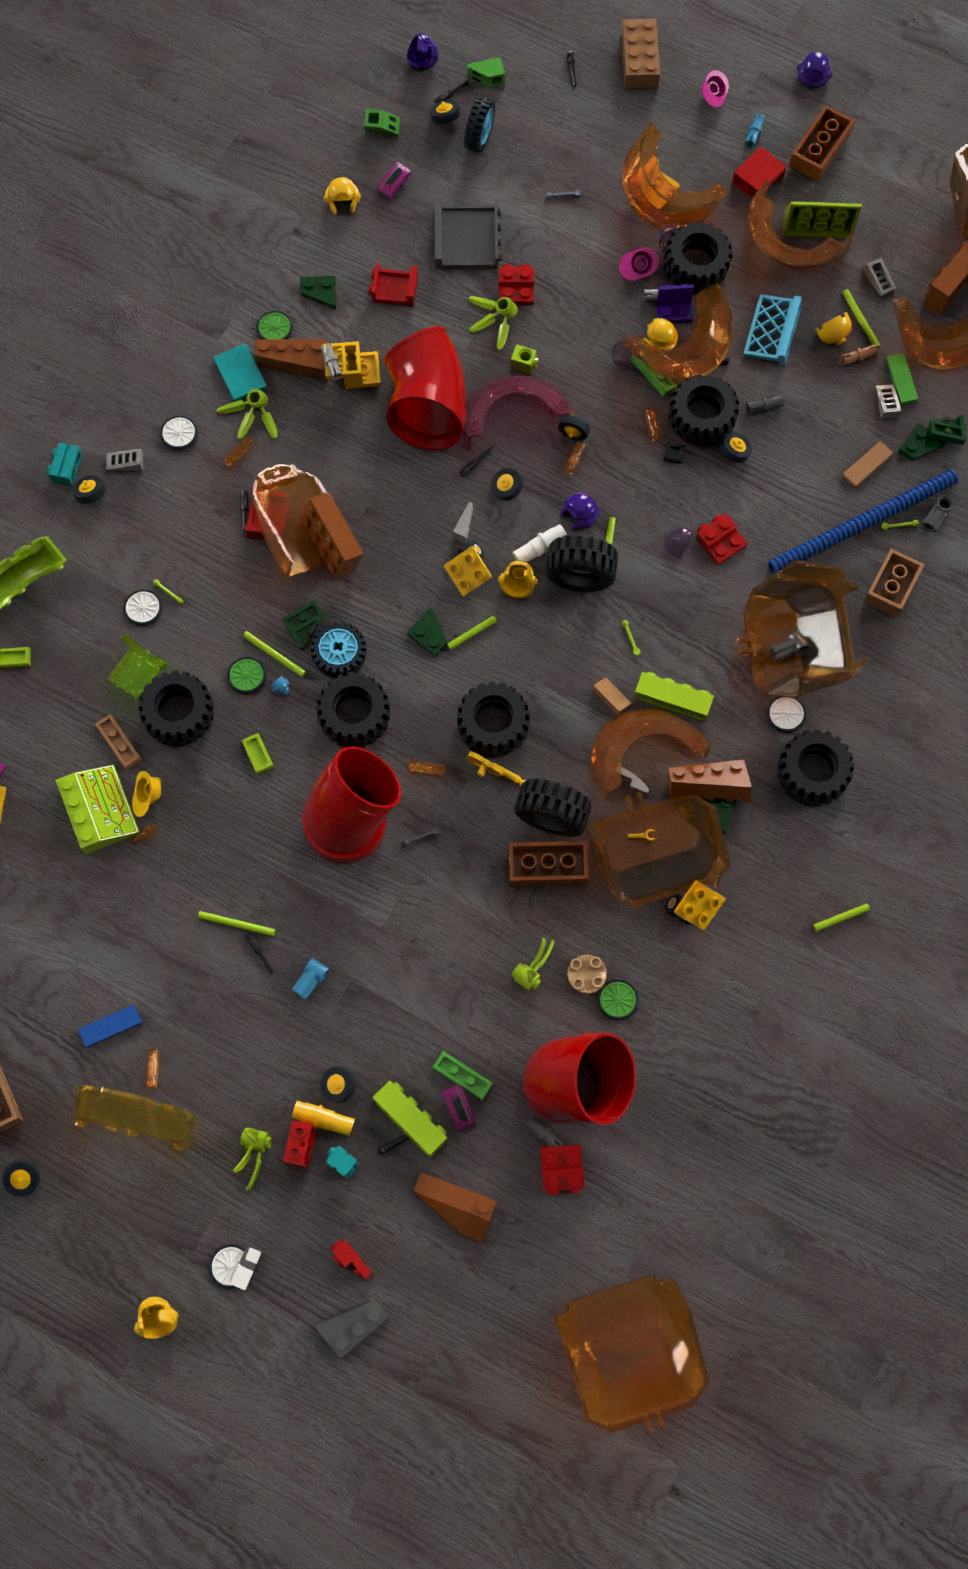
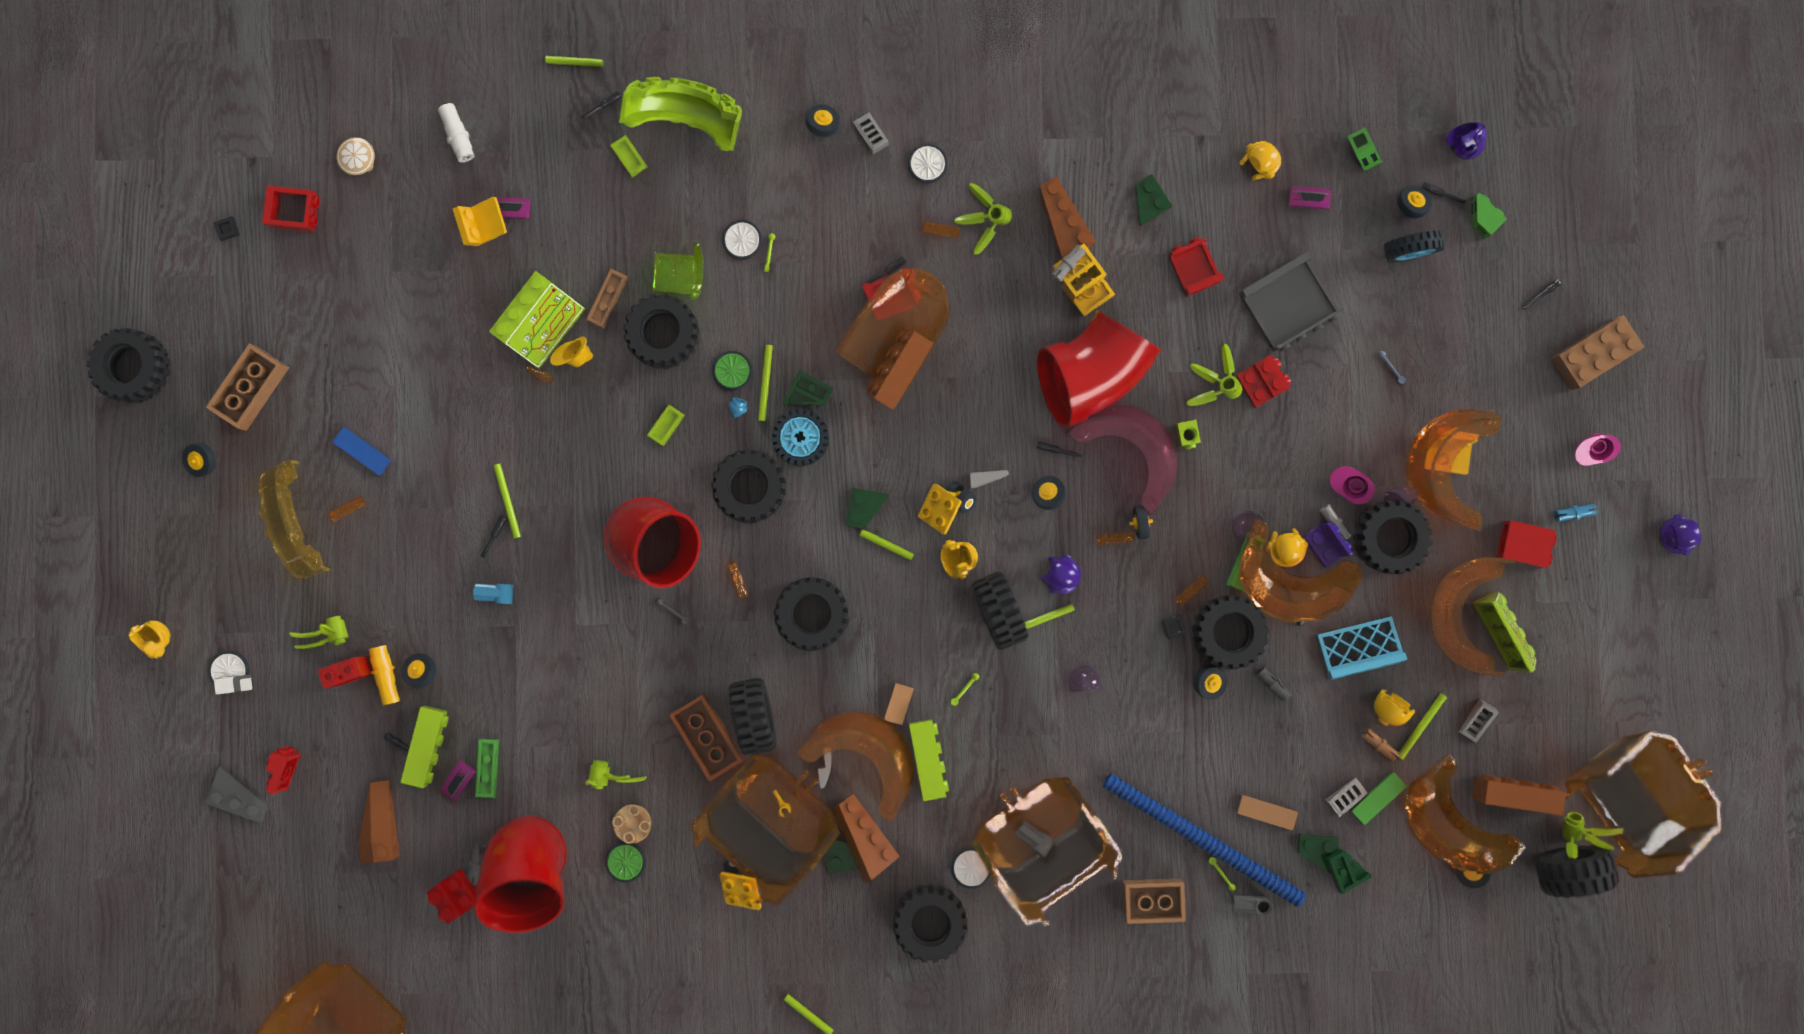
camera: 60 degrees right, 15 degrees up
(64, 464) = (834, 82): teal brick -> none
(239, 372) = (1020, 180): teal tile -> none
(274, 325) = (1087, 182): bright green wheel -> none
(342, 1162) = (354, 713): teal brick -> none
(497, 770) = (767, 630): yellow piece -> none
(538, 545) = (1005, 557): white piece -> none
(721, 538) = (1109, 718): red plate -> none
(821, 143) = (1597, 587): dark orange brick -> none

